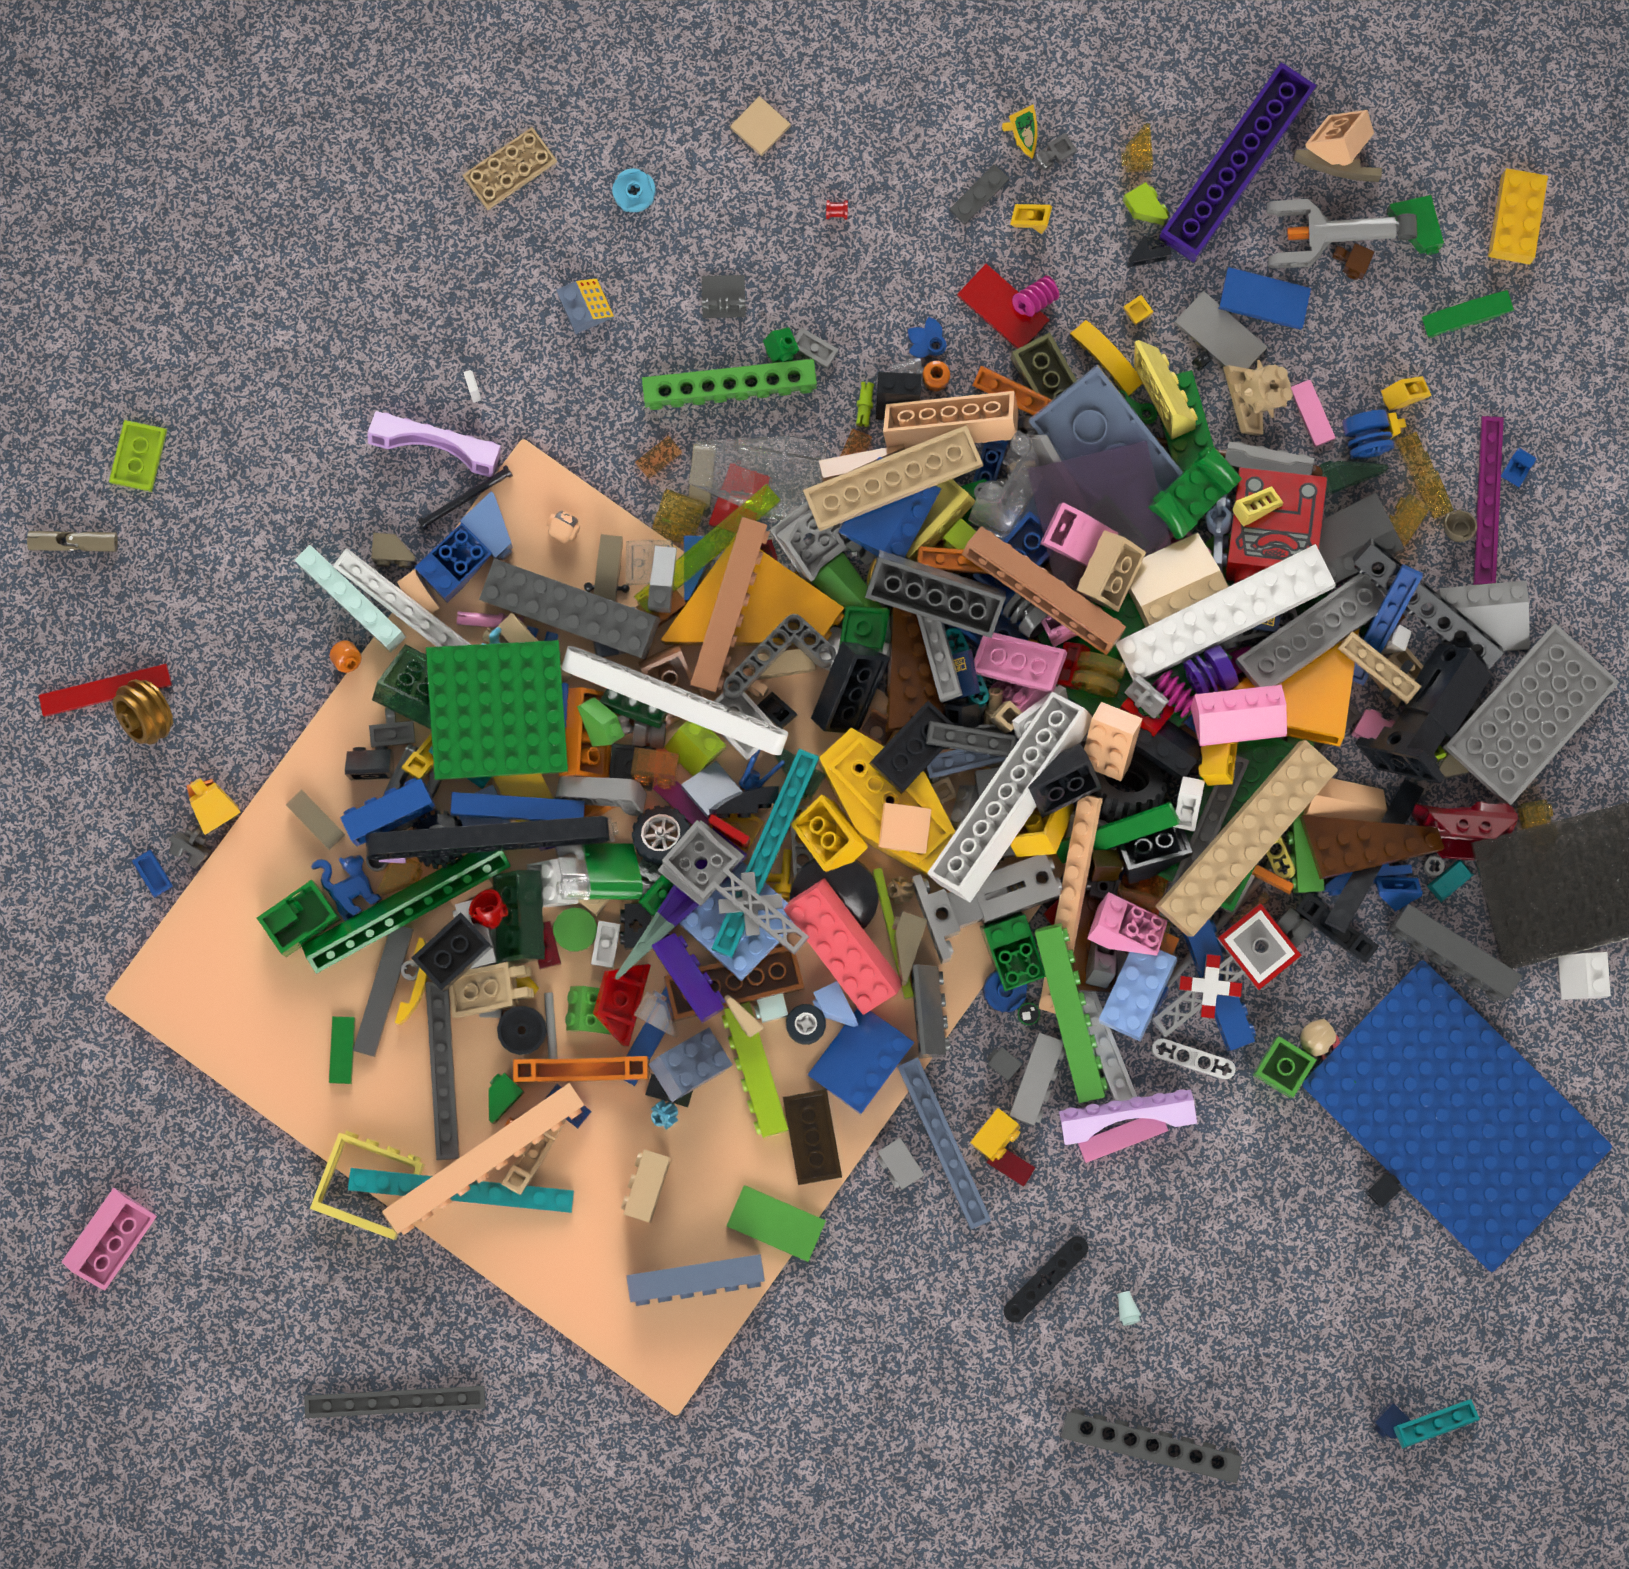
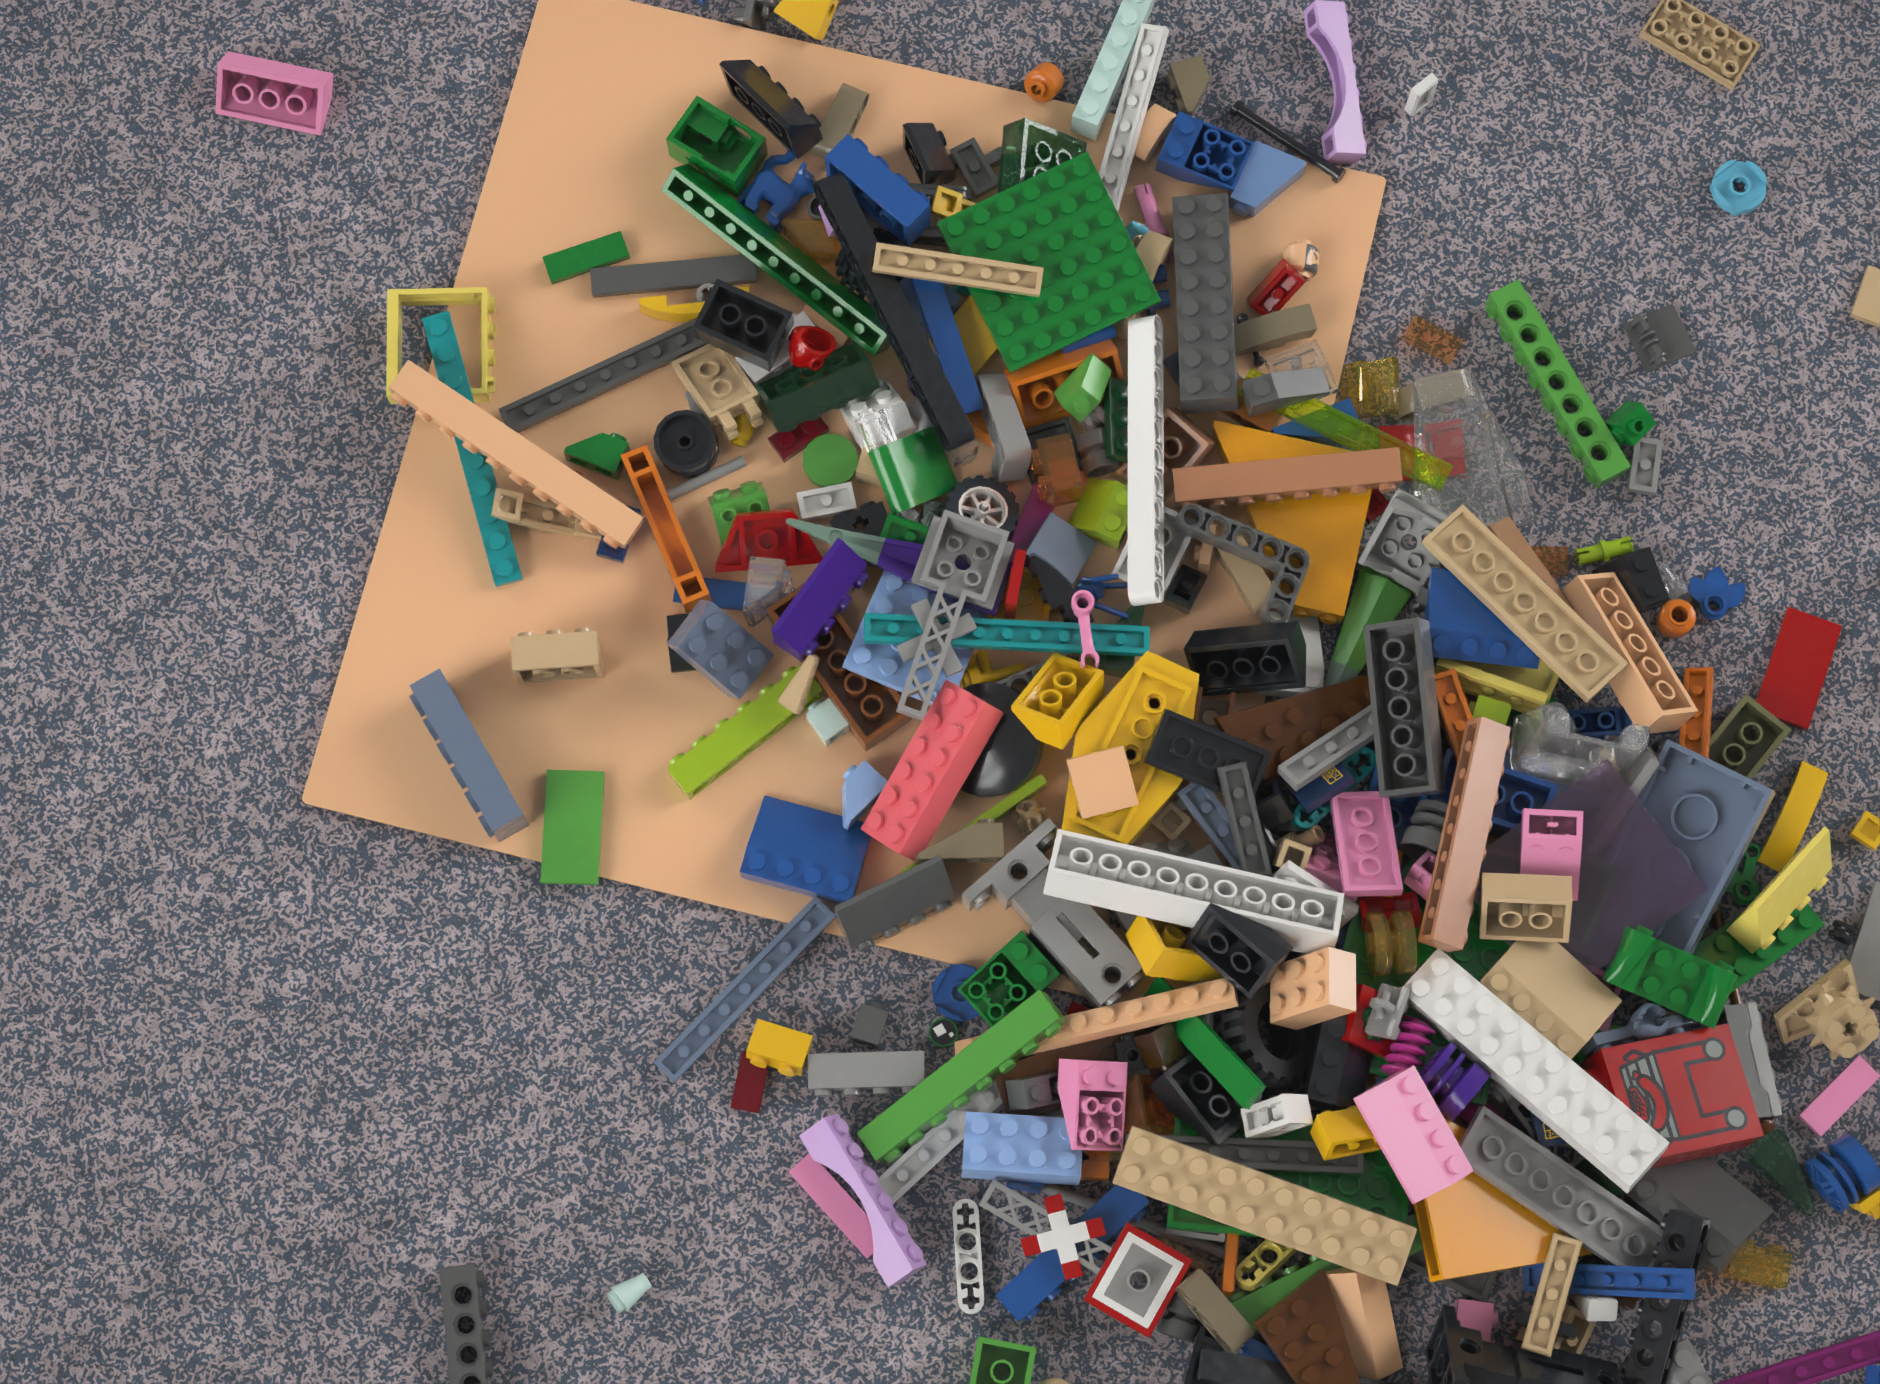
camera: 70 degrees right, 5 degrees down
(284, 865) = (772, 105): none -> black slope
(394, 1401) = (203, 476): dark grey plate -> none
(479, 778) = (957, 269): none -> tan plate
(578, 554) = (1276, 289): none -> red slope
(584, 304) = (1576, 184): sand blue slope -> none
(664, 1114) = (651, 645): medium azure gear -> none
(778, 793) = (1085, 598): none -> bright pink brick
(805, 1024) = (820, 759): black wheel -> none
(812, 1137) = (691, 829): dark brown plate -> none
(837, 209) = (1825, 425): red bush -> none
(865, 626) = (1331, 650): green tile -> none
(900, 1164) = (699, 947): light grey brick -> none
(1036, 296) = (1828, 698): dark pink piece -> none
(1062, 1263) = (654, 1190): black piece -> none
(1245, 512) = (1671, 1052): light yellow slope -> none
(1301, 902) = (1215, 1311): none -> dark tan beam
(1424, 475) = (1824, 1267): clear yellow slope -> none
(1460, 526) = (1779, 1336): dark tan hair -> none

